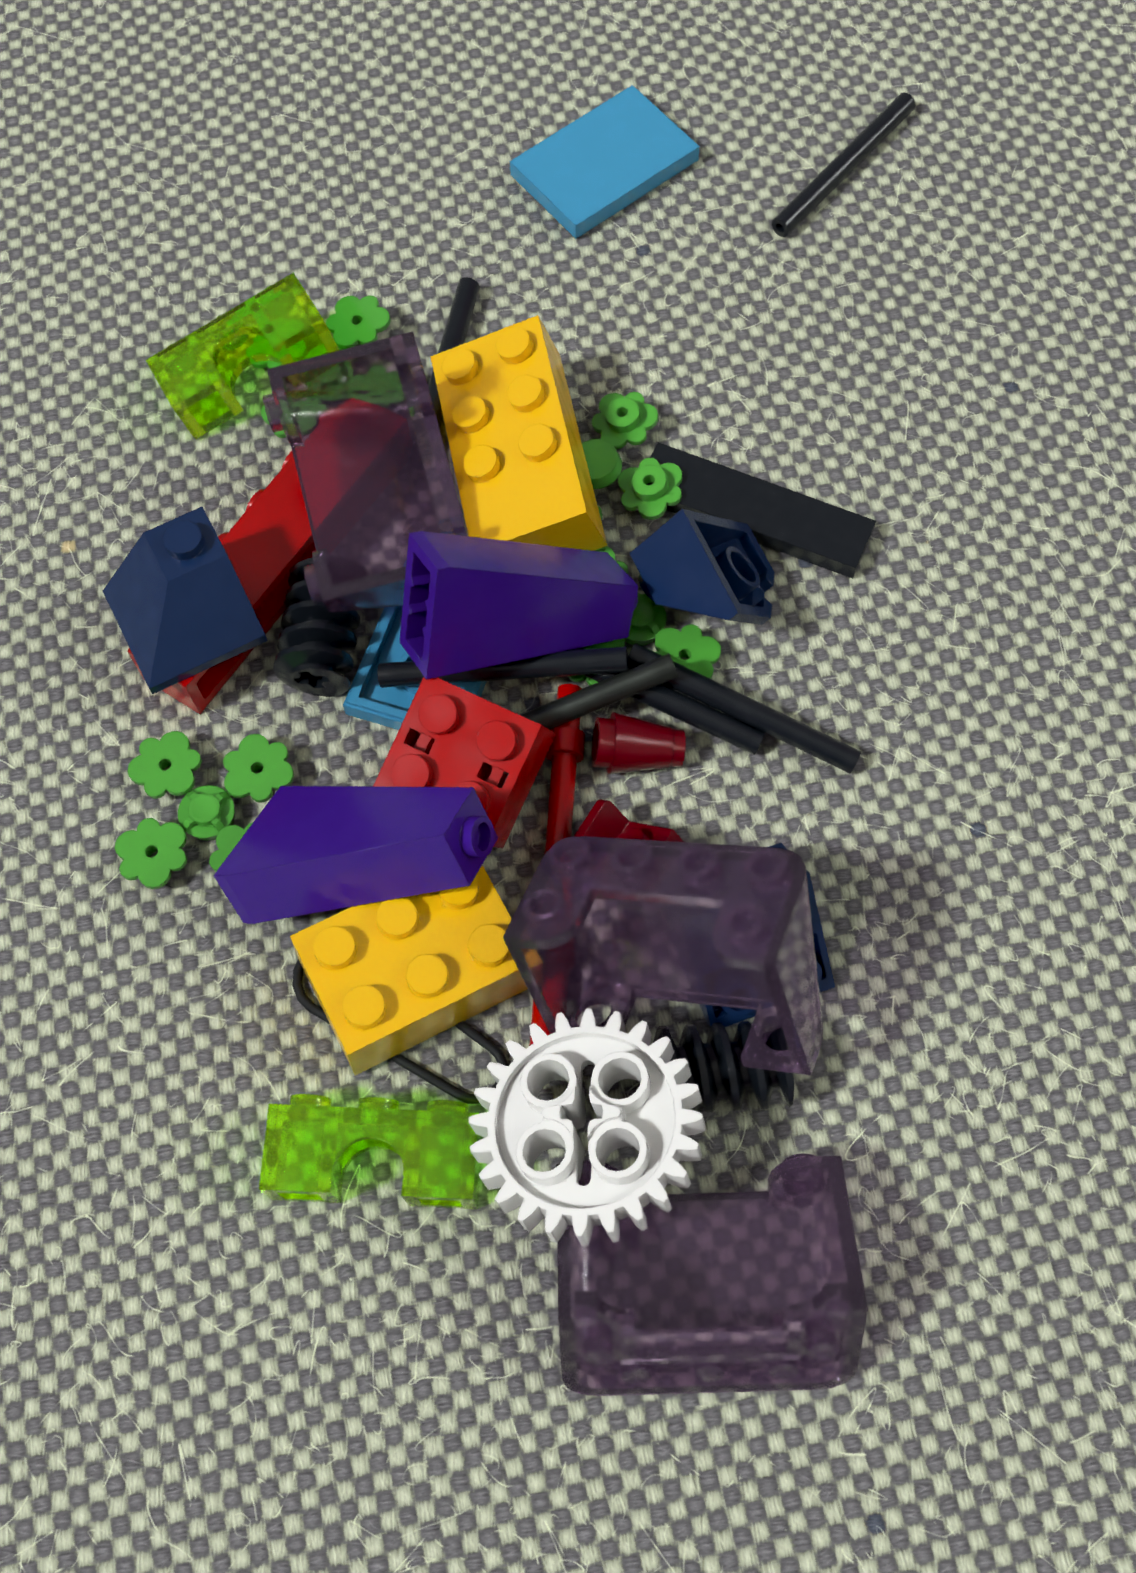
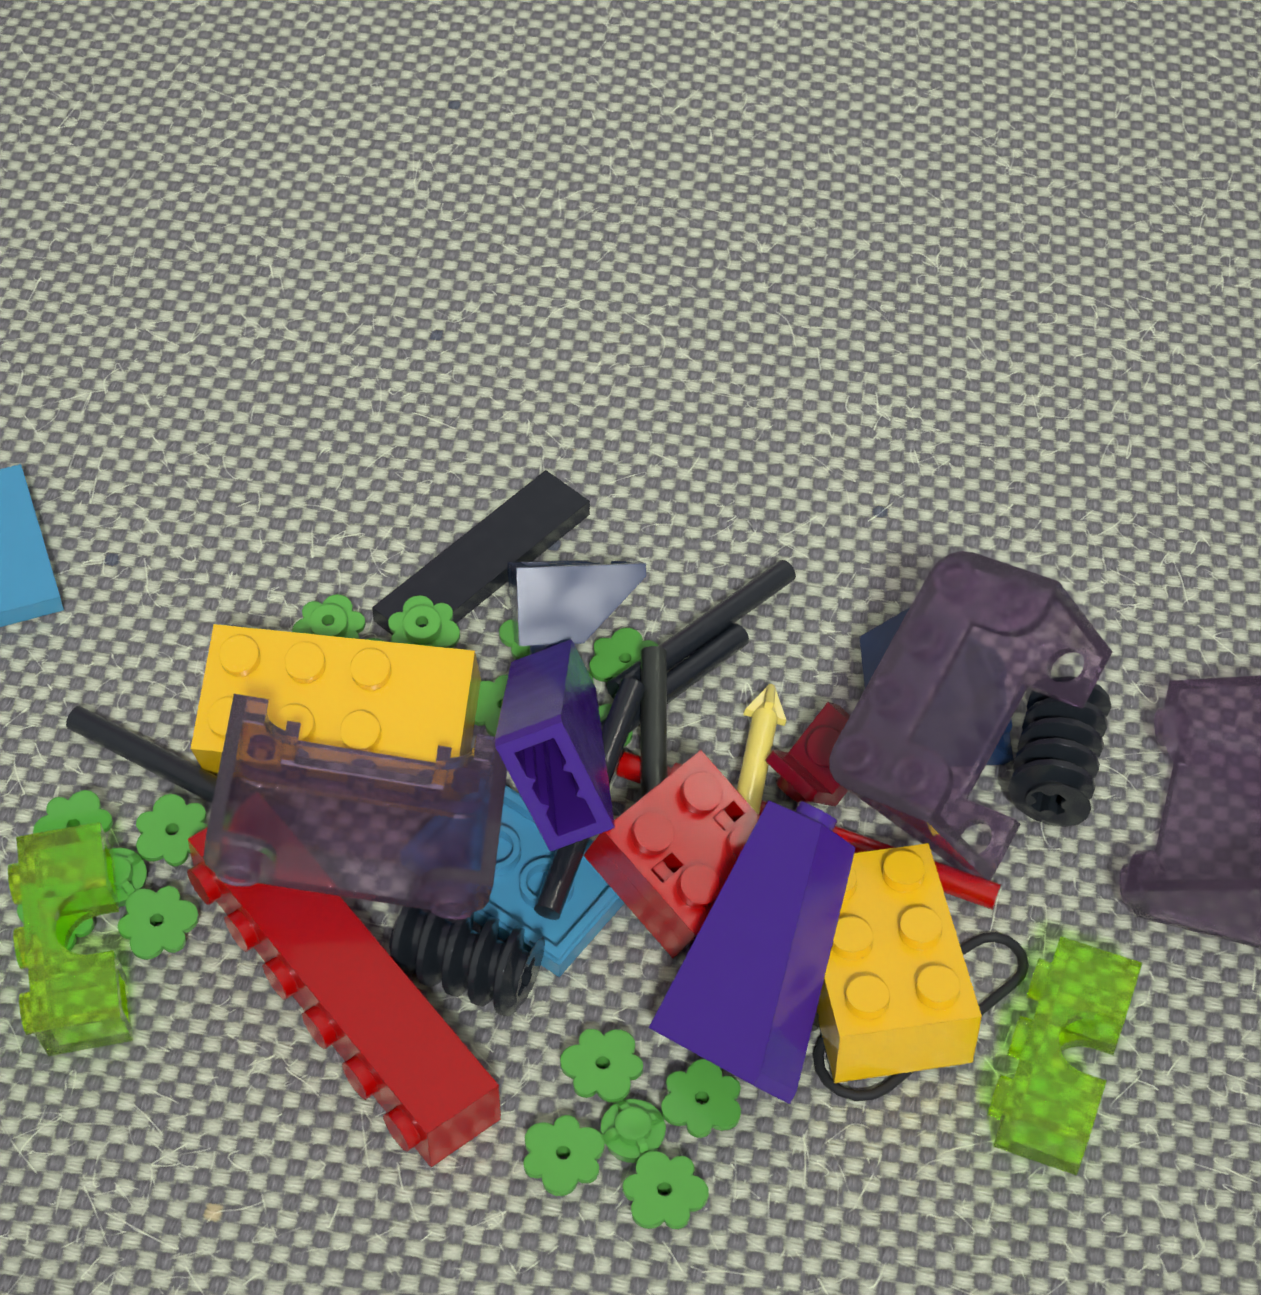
camera: 75 degrees left, 15 degrees down
(181, 602) = (406, 1049): dark blue slope -> none
(634, 745) = (708, 724): dark red cone -> none
(650, 1121) = (1089, 888): white gear -> none
(672, 790) = (765, 714): none -> light yellow piece
(843, 165) = (111, 365): black piece -> none

